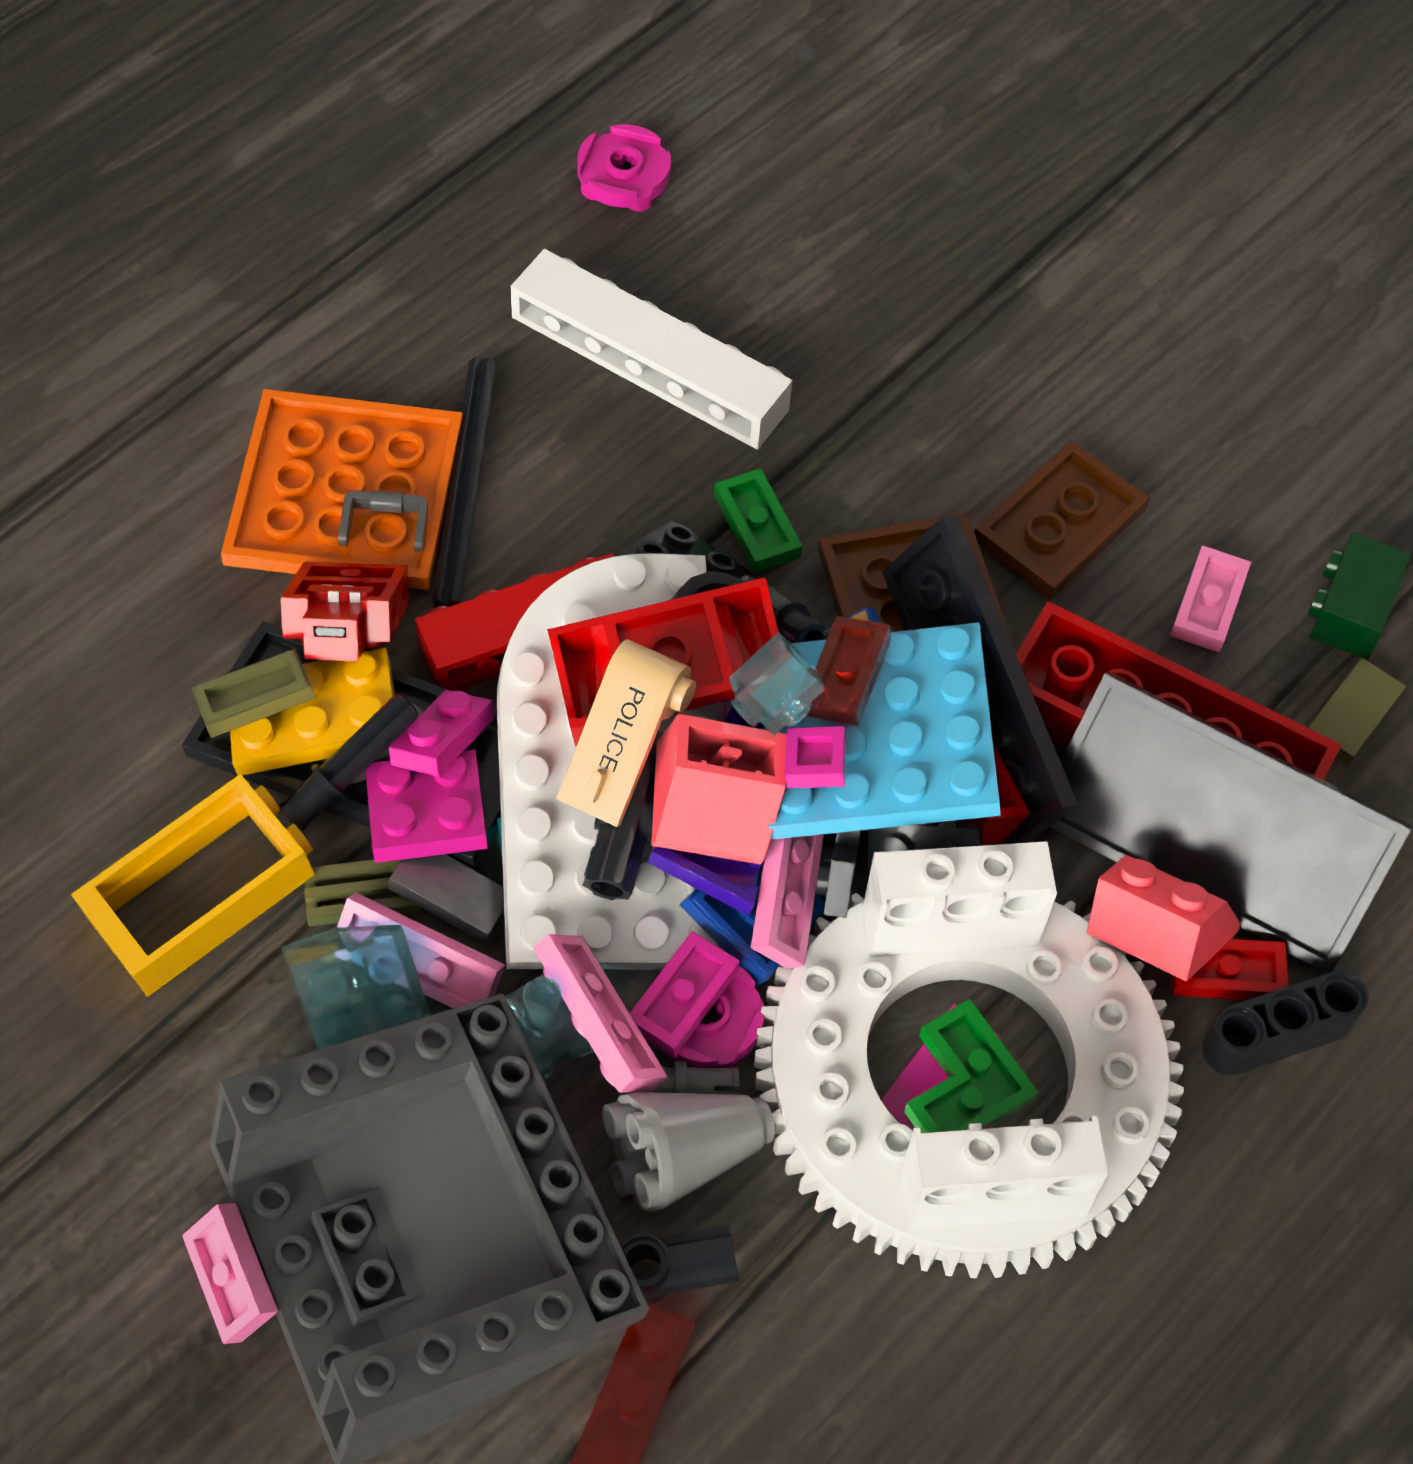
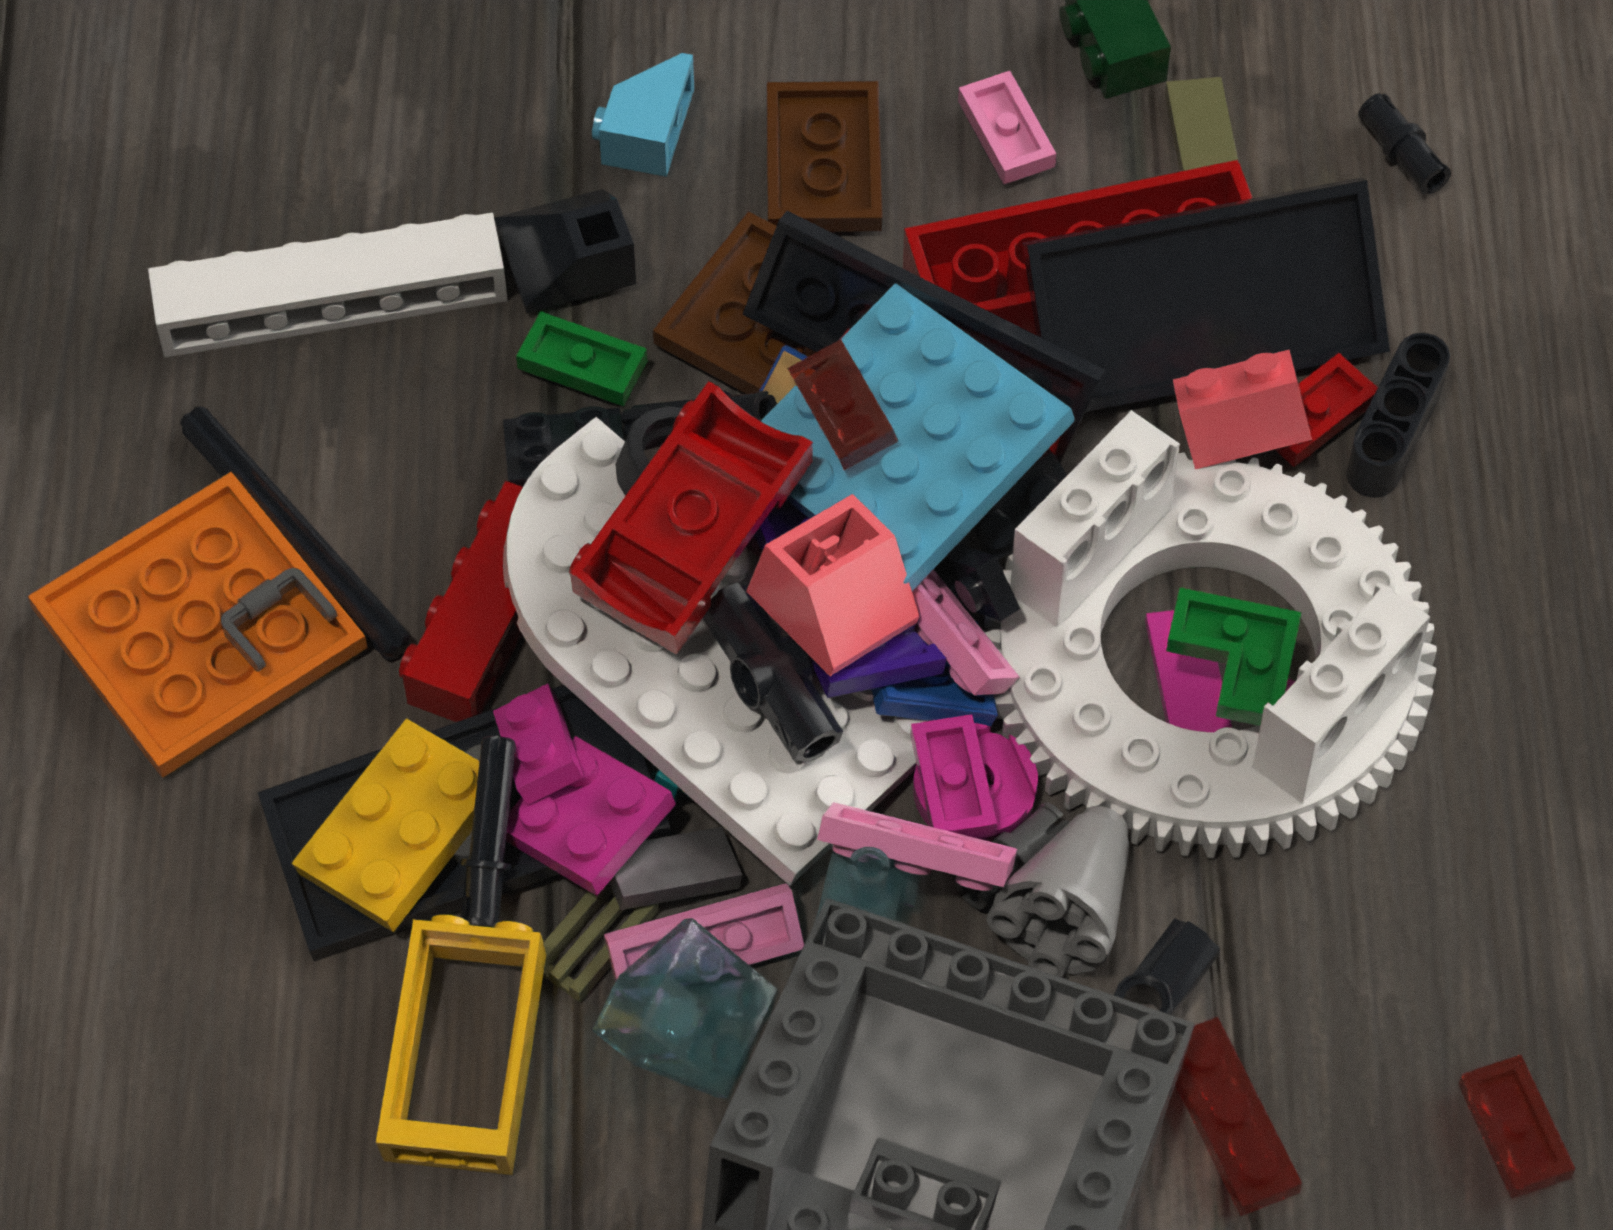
camera: 40 degrees left, 0 degrees up
(253, 693) = (342, 848): olive tile -> none
(344, 607) = (332, 715): red piece -> none
(618, 187) = (123, 168): dark pink plate -> none
(621, 727) = (726, 599): door -> none
(775, 686) = (815, 458): clear light blue brick -> none
(816, 757) = (896, 491): dark pink plate -> none
(823, 445) = (568, 249): none -> black slope
(969, 402) = (646, 117): none -> medium azure slope

